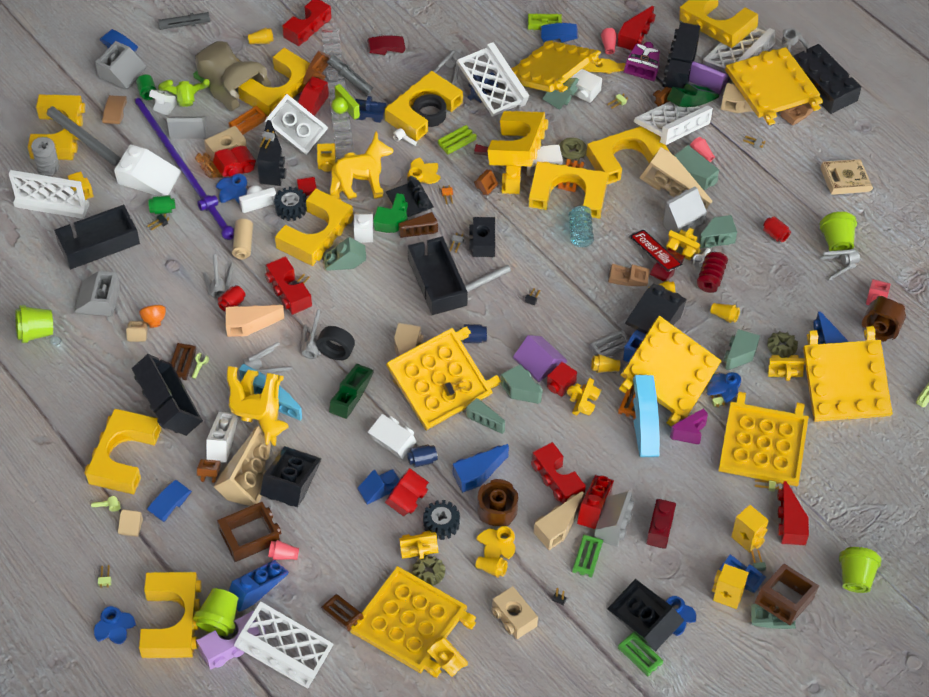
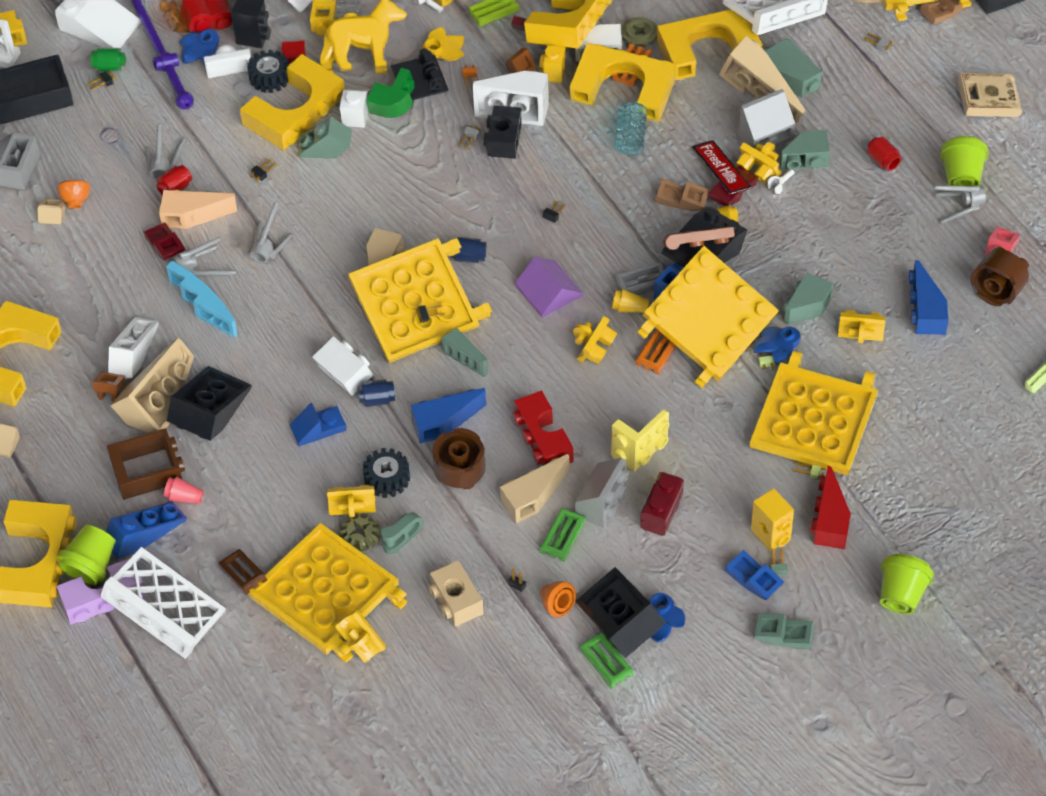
camera: 10 degrees right, 0 degrees up
(166, 395) = (71, 289): black piece -> none
(168, 499) = (53, 416): blue slope -> none
(186, 347) = (96, 265): reddish brown tile -> none
(199, 364) = (121, 257): yellowish green hand -> none
(231, 348) = (164, 241): none -> dark red slope
(242, 239) = (200, 109): tan brick -> none
(257, 406) = (179, 313): yellow animal -> none
(293, 297) = (252, 185): red arch -> none
(338, 335) = (297, 237): black tyre -> none
(350, 391) = (301, 306): dark green slope -> none
(406, 492) = (348, 435): red brick -> none
(419, 226) = (425, 111): reddish brown slope -> none
(437, 276) = (435, 175): black piece -> none
(458, 571) = (401, 533): none -> sand green plate
(487, 278) = (498, 184): light grey bar -> none
(491, 203) = (518, 89): none -> white slope
(493, 565) = (440, 534): yellow cone -> none
(495, 544) = (450, 510): yellow plate -> none
(520, 385) = (516, 318): sand green slope -> none
(561, 379) = (569, 314): red brick -> none
(594, 501) = (580, 466): red slope -> none
(594, 608) = (558, 598): none -> orange brick
(632, 480) = (639, 447): none -> light yellow bracket
(647, 418) = (667, 367): medium azure slope -> none
(653, 309) = (697, 237): none -> plate
(688, 428) = (719, 390): magenta slope -> none
(701, 146) = (806, 43): coral cone -> none
(712, 272) = (789, 199): dark red piece -> none
(725, 311) = (798, 251): yellow cone -> none
(729, 586) = (733, 587): yellow brick -> none
(782, 350) = (861, 305): olive gear -> none
(788, 610) = (801, 625): reddish brown window -> none
(847, 378) = (937, 347): yellow plate -> none

